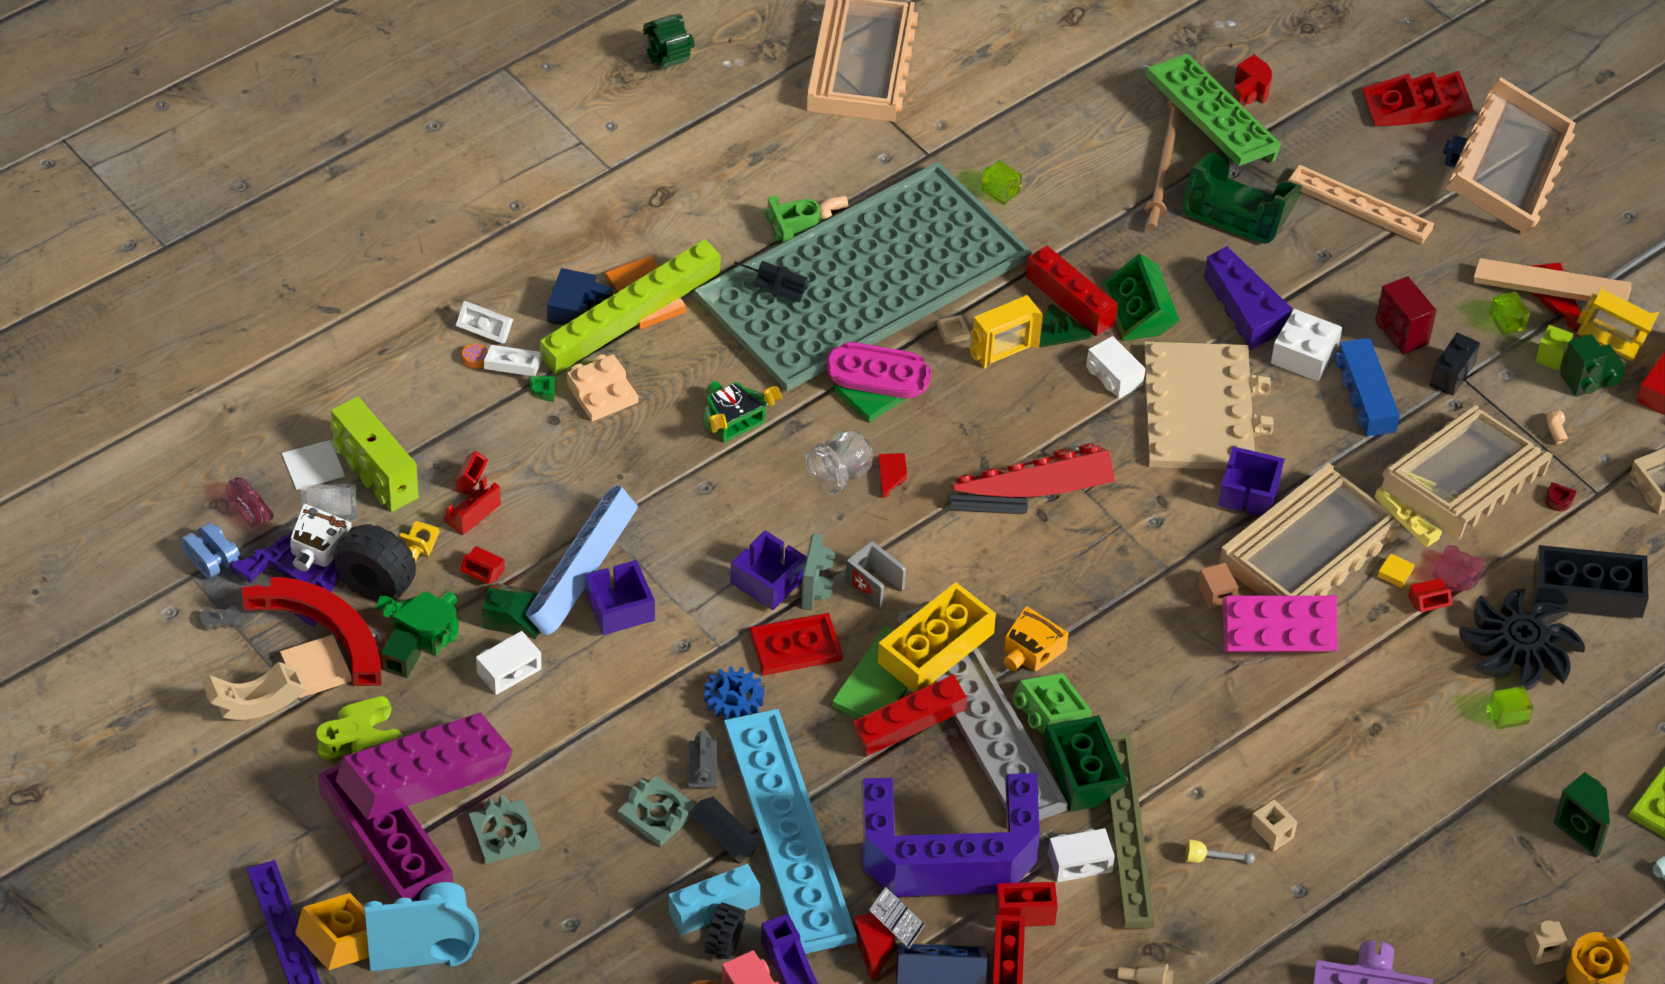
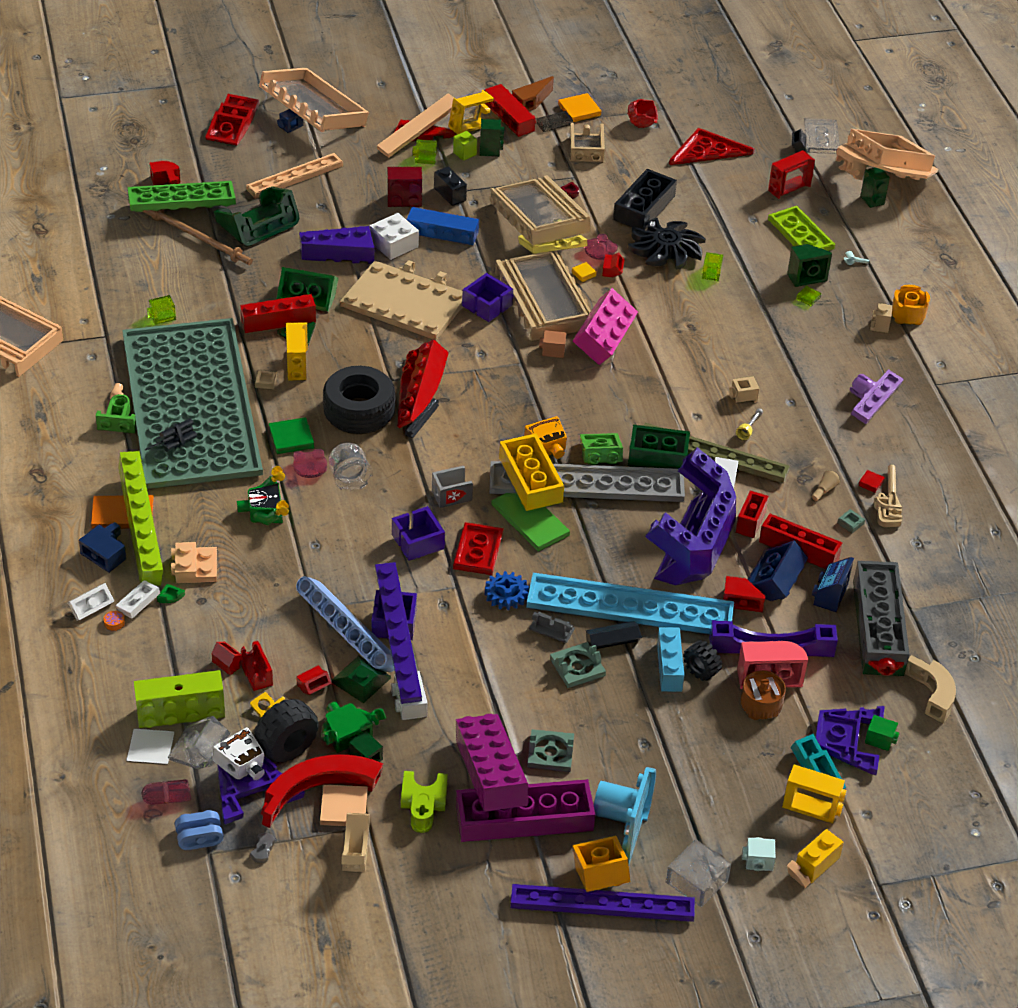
camera: 65 degrees left, 5 degrees down
(577, 604) = (398, 633): none -> dark purple plate
(814, 585) = (441, 500): sand green piece -> none
(829, 421) = (310, 463): none -> clear pink piece
(878, 370) = (281, 422): dark pink tile -> none
(892, 471) = (370, 450): red tile -> none
(897, 917) = (735, 575): light grey sticker -> none
(910, 715) = (580, 510): red brick -> none
(963, 399) = (359, 416): none -> black tyre
(1115, 367) = (353, 320): white brick -> none
(1540, 843) = (808, 296): none -> clear neon green tile
(1555, 422) = (516, 169): light nougat arm -> none

